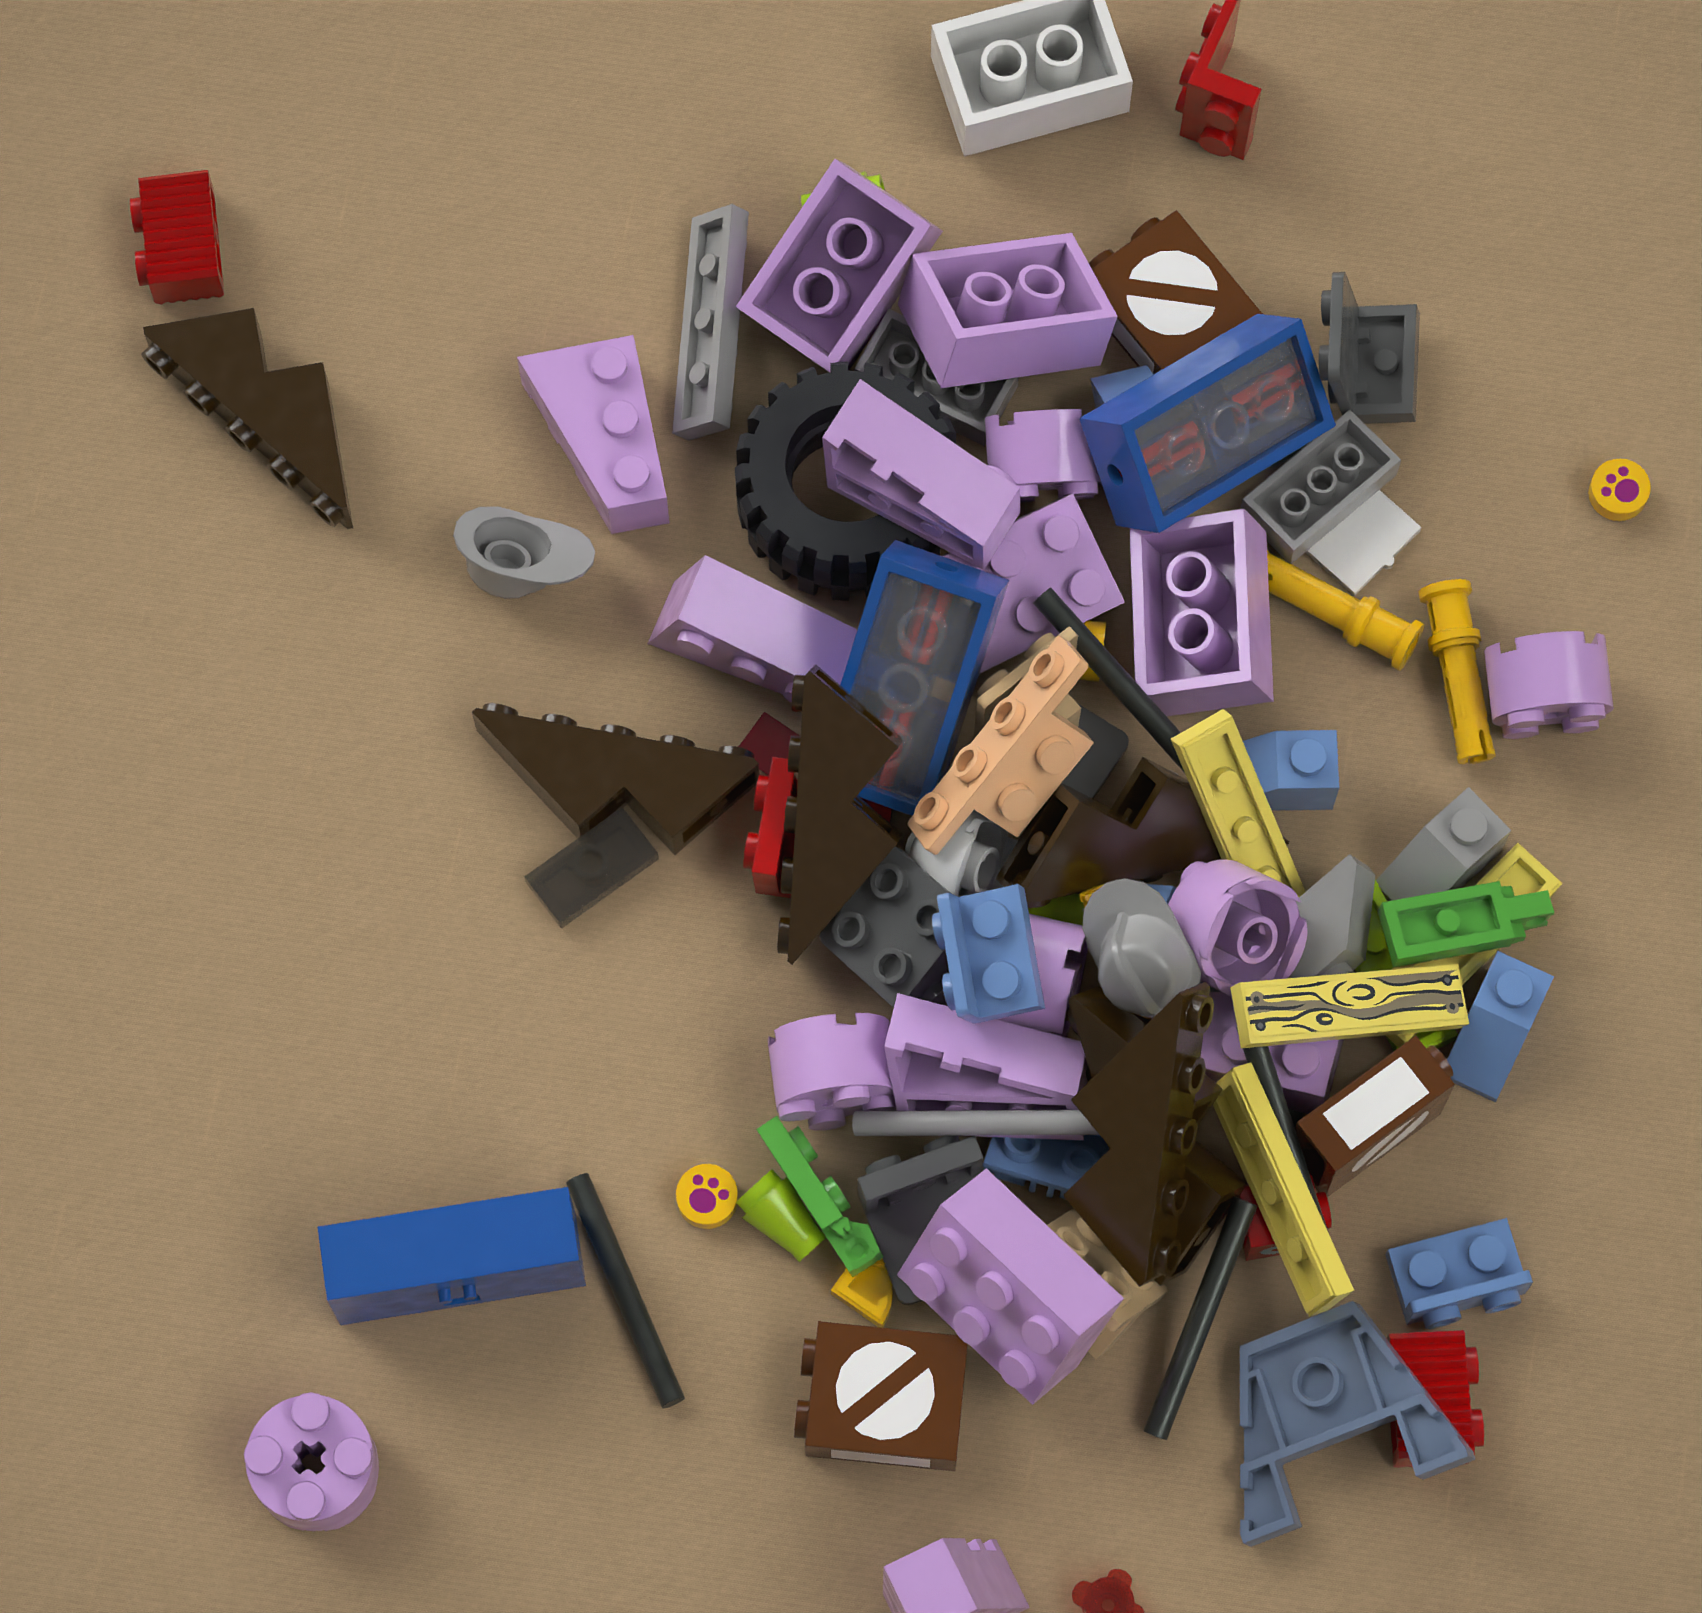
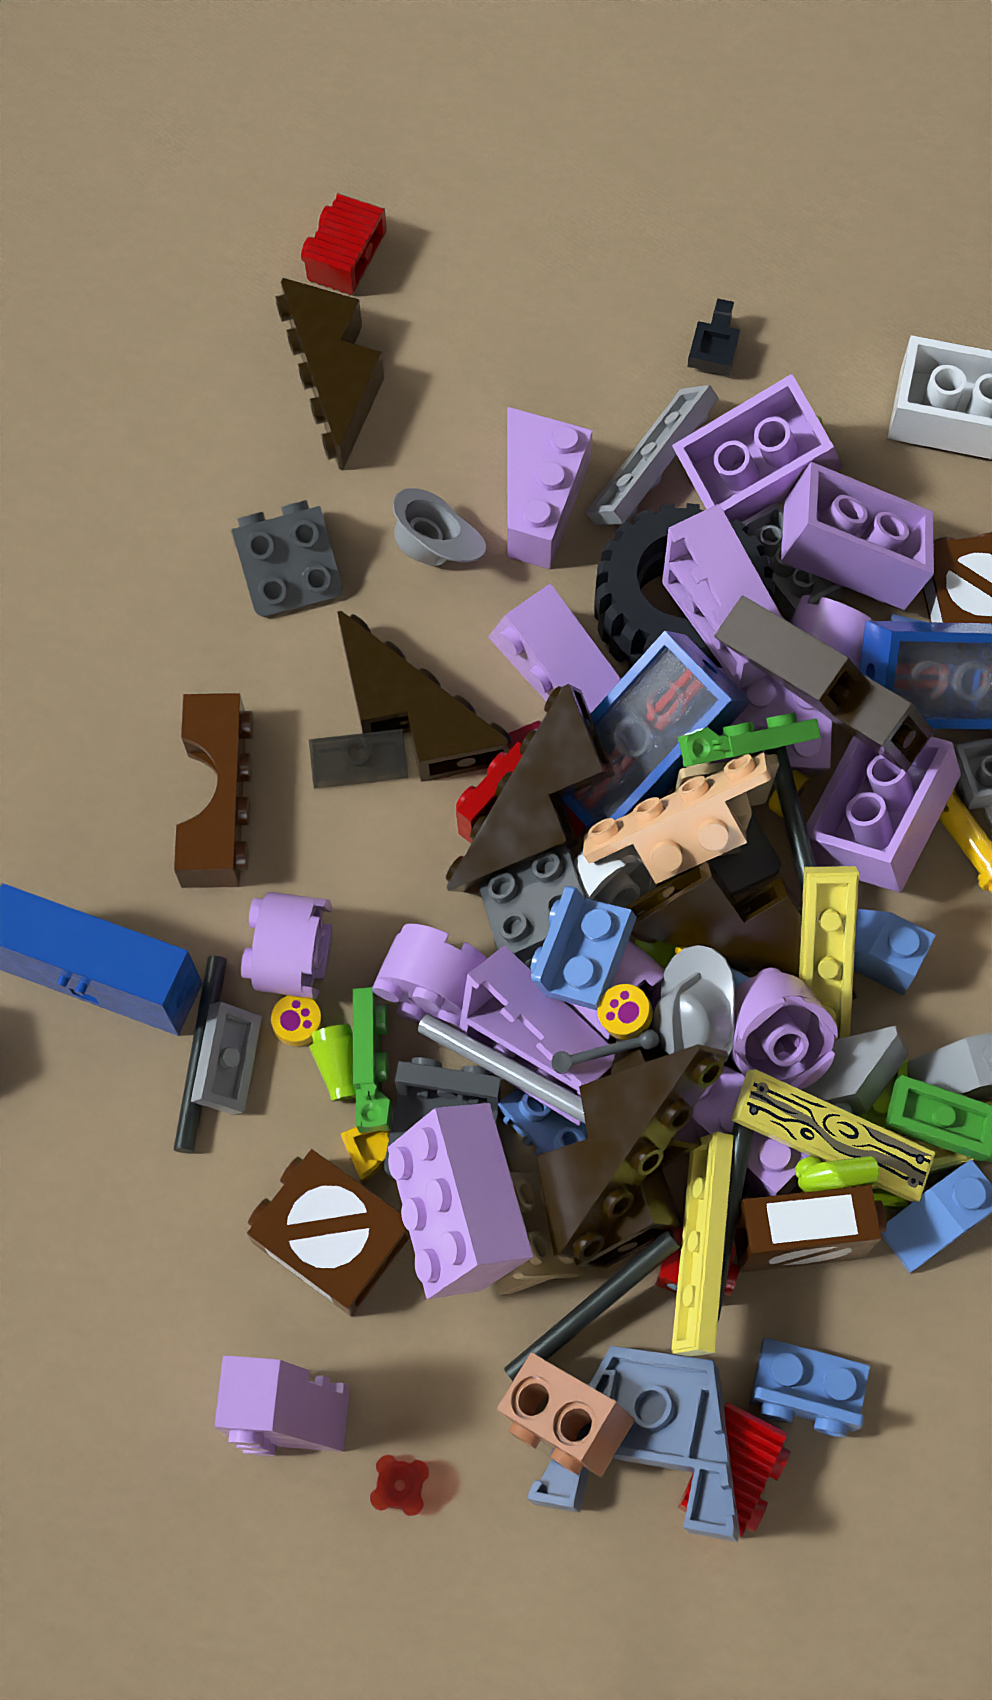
camera: 30 degrees right, 5 degrees down
(362, 673) = (287, 559): none -> dark grey bracket
(418, 931) = (210, 843): none -> reddish brown arch
(658, 1119) = (288, 944): none -> lavender brick
(661, 1279) = (226, 1058): none -> light grey plate
(700, 138) = (715, 343): none -> black plate
(1033, 629) = (741, 739): none -> bright green hinge
(1037, 1083) = (563, 1061): none -> dark grey hinge
(1071, 995) = (625, 1011): none -> yellow tile
(1078, 521) = (826, 682): none -> slope
(1237, 1428) = (567, 1411): none -> nougat brick
(1360, 1055) = (836, 1174): none -> lime arm

